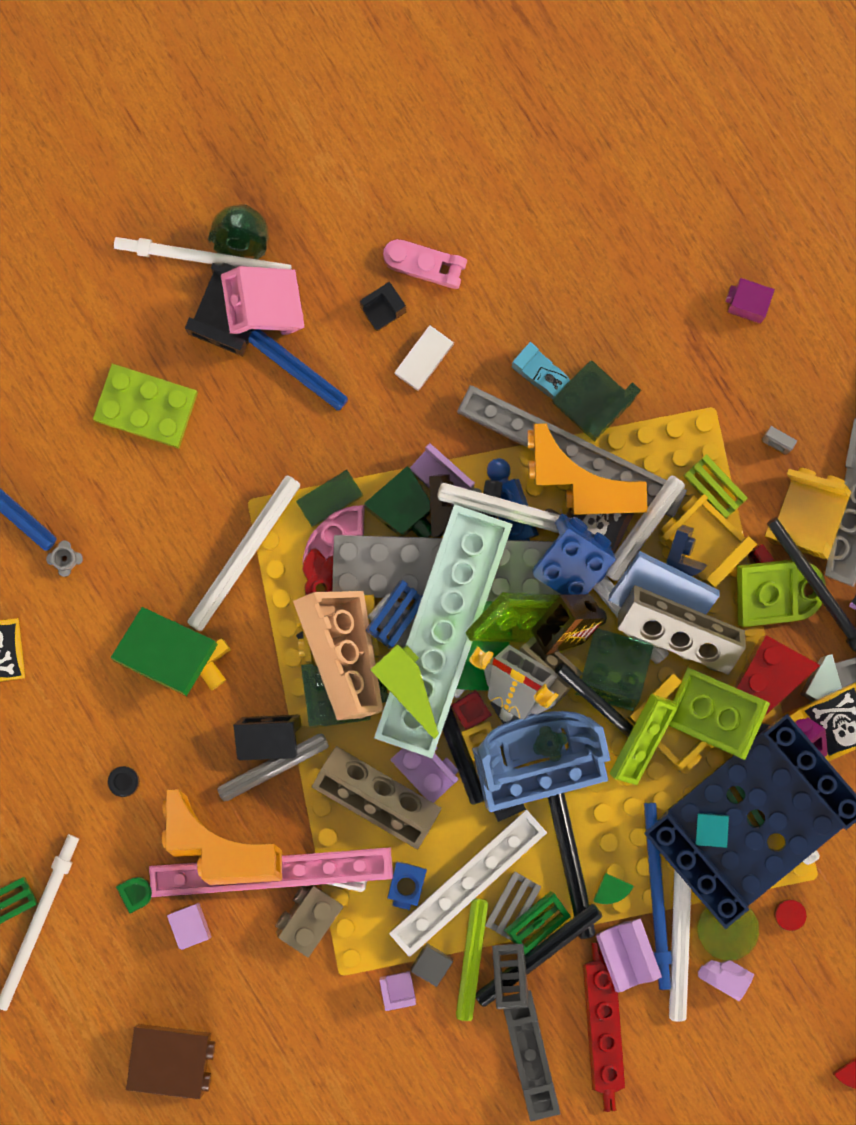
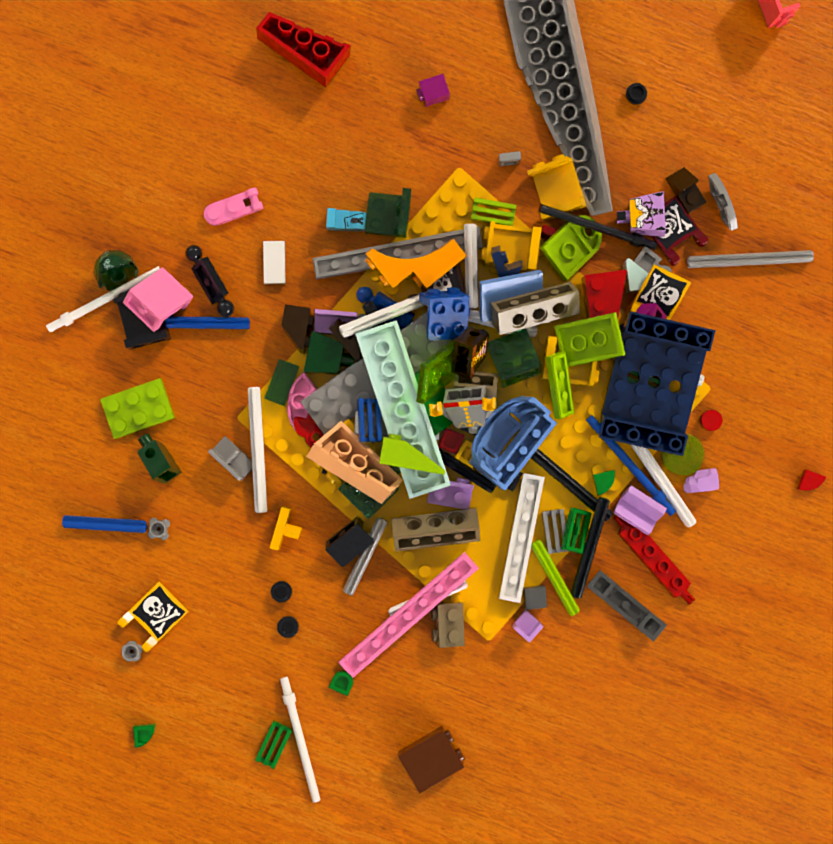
camera: 40 degrees left, 5 degrees up
(123, 479) = (157, 460): none -> dark green torso
(147, 735) = (281, 591): none -> black plate
(164, 651) = (255, 538): green tile -> none
(189, 926) = (385, 678): lavender panel -> none
(207, 541) = (232, 458): none -> light grey panel
(221, 859) = (375, 629): light orange arch -> none
(336, 324) = (209, 280): none -> black plate
(383, 306) = (228, 250): black panel -> none
(395, 446) = (296, 325): none -> dark brown slope
(405, 870) = (488, 554): blue brick -> none
(523, 1001) = (589, 589): dark grey slope -> none
(541, 743) = (505, 431): clear green plate -> none
(594, 699) = (513, 383): black bar -> none
(638, 146) = (309, 51): none -> red wedge
(712, 830) = (635, 406): teal tile -> none

